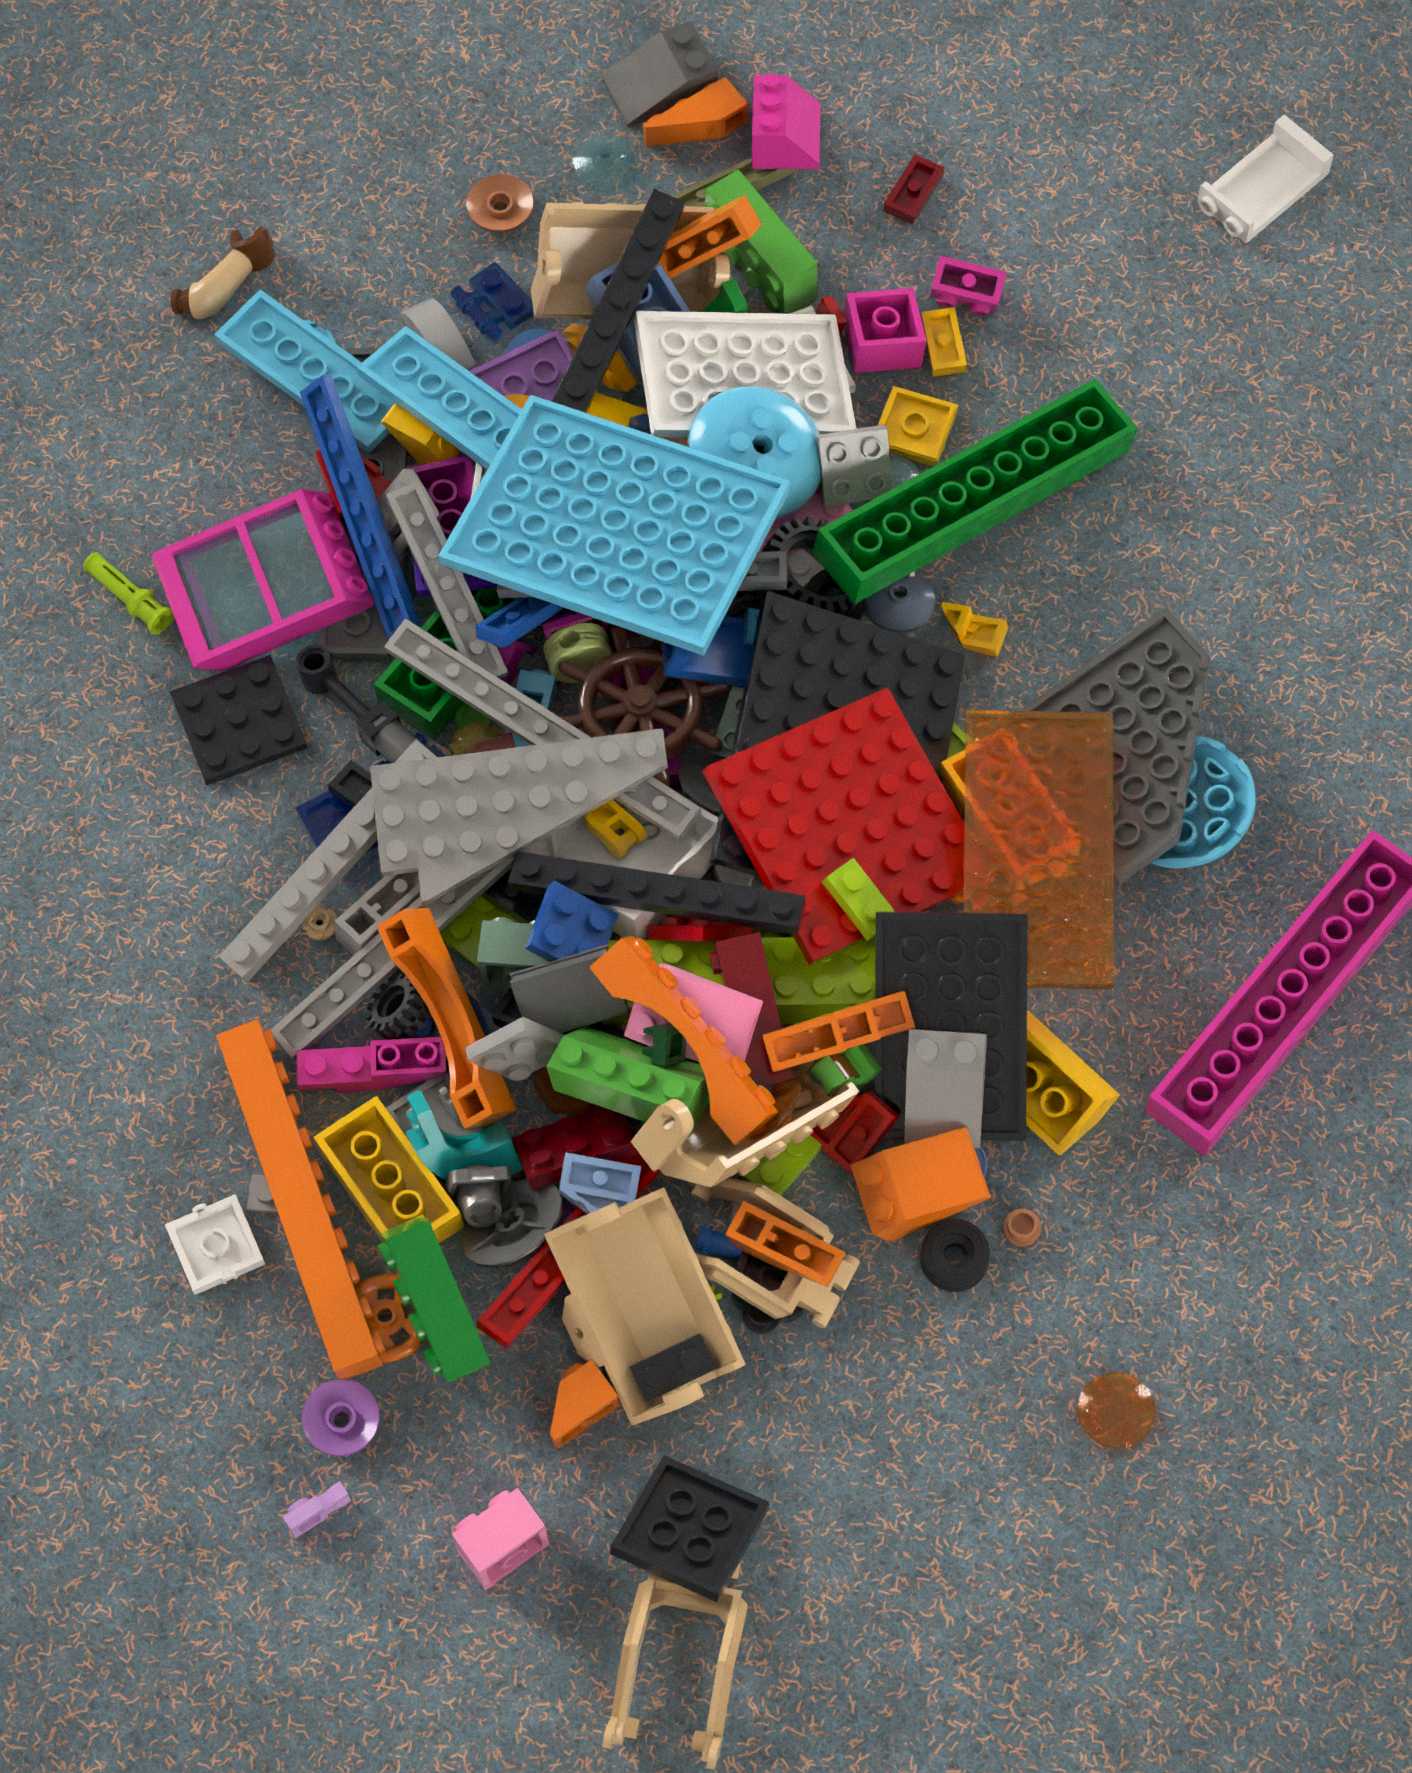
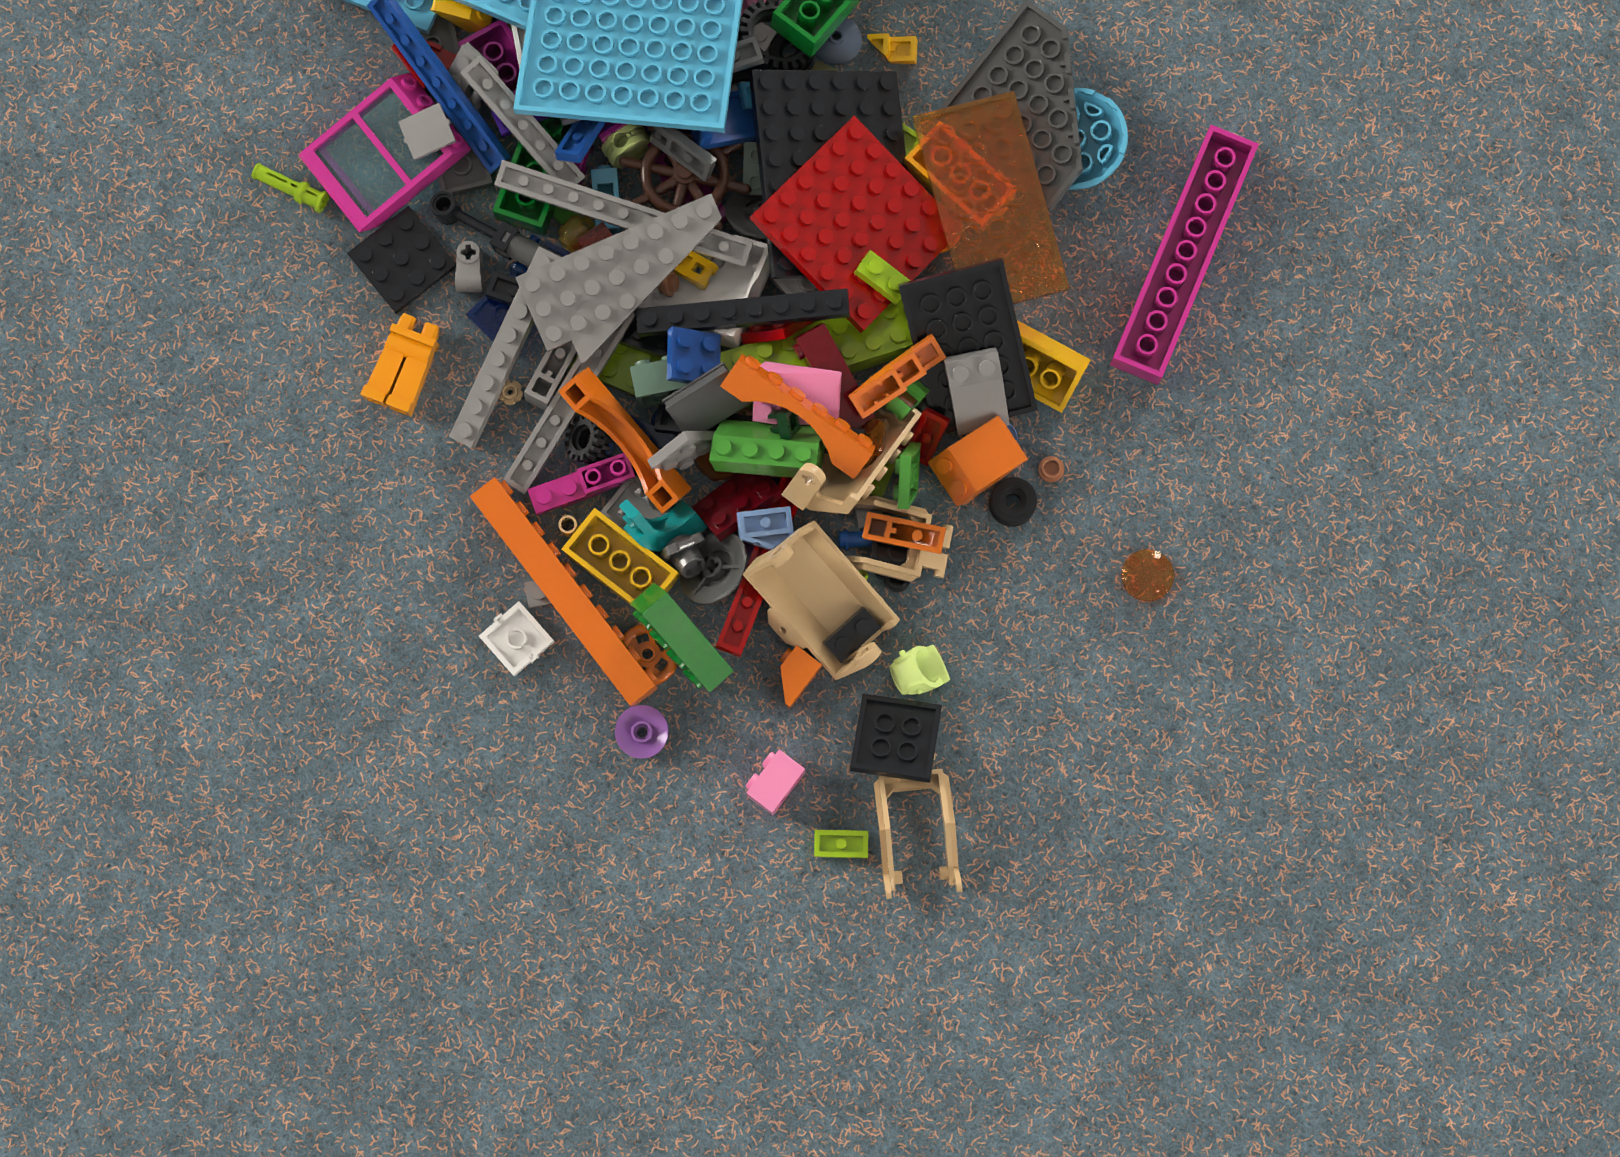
camera: 20 degrees left, 15 degrees up
(190, 851) = (402, 366): none -> light orange hips
(308, 1513) = (640, 802): lavender plate -> none
(320, 757) = (469, 273): none -> light grey piece
(323, 564) = (427, 131): none -> light grey piece
(331, 1107) = (565, 519): none -> tan hinge
(566, 1656) = (841, 843): none -> lime plate
(574, 837) = (669, 285): none -> nougat plate
(646, 670) = (684, 151): none -> dark grey plate
(751, 1445) = (918, 670): none -> yellowish green helmet
(816, 1171) = (908, 469): none -> bright green plate

